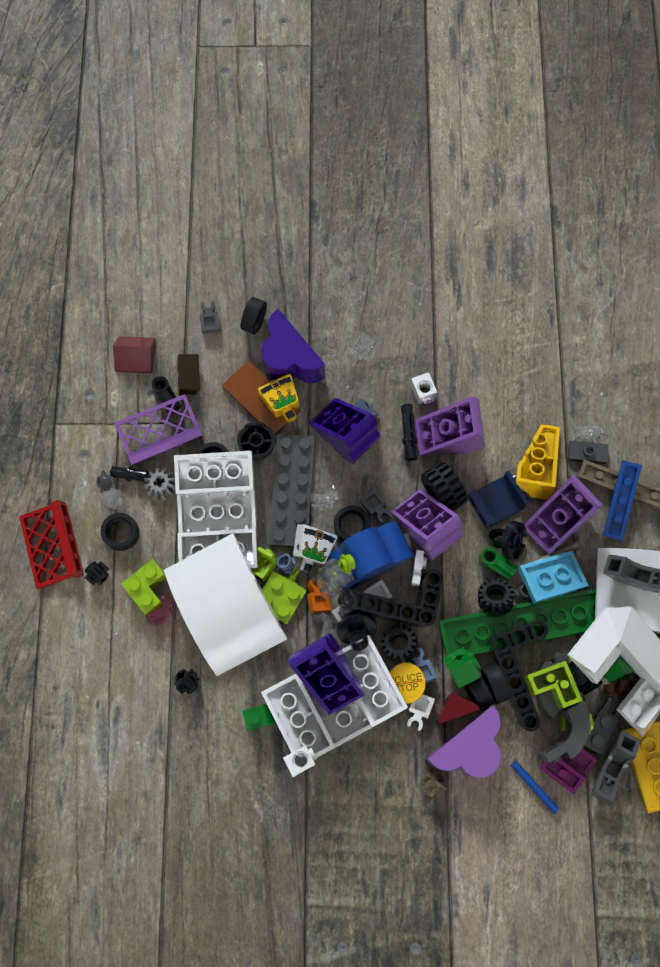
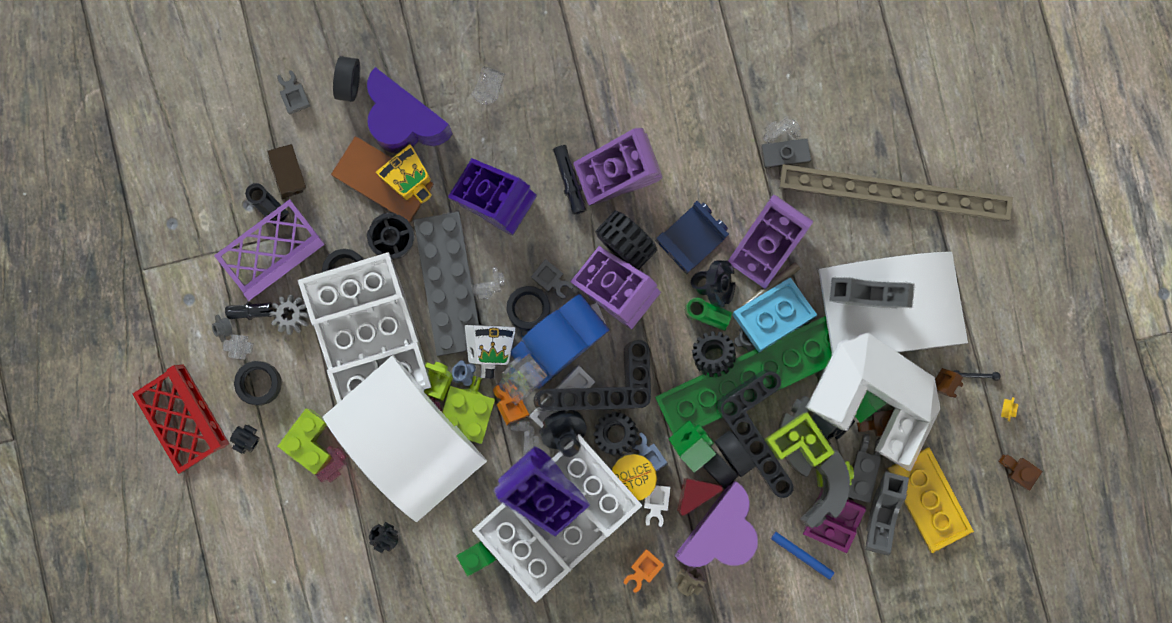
camera: 15 degrees left, 10 degrees up
(134, 354) = (212, 160): dark red slope -> none
(290, 760) = (525, 601): white brick -> none
(346, 563) = (533, 361): lime plate -> none
(363, 404) = (512, 165): sand blue plate -> none
(398, 763) = (646, 568): none -> orange plate
(419, 563) = (618, 334): white plate -> none
(423, 381) = (575, 112): white brick -> none
(539, 464) = (731, 185): yellow wedge -> none
(622, 500) = (836, 204): blue plate -> none

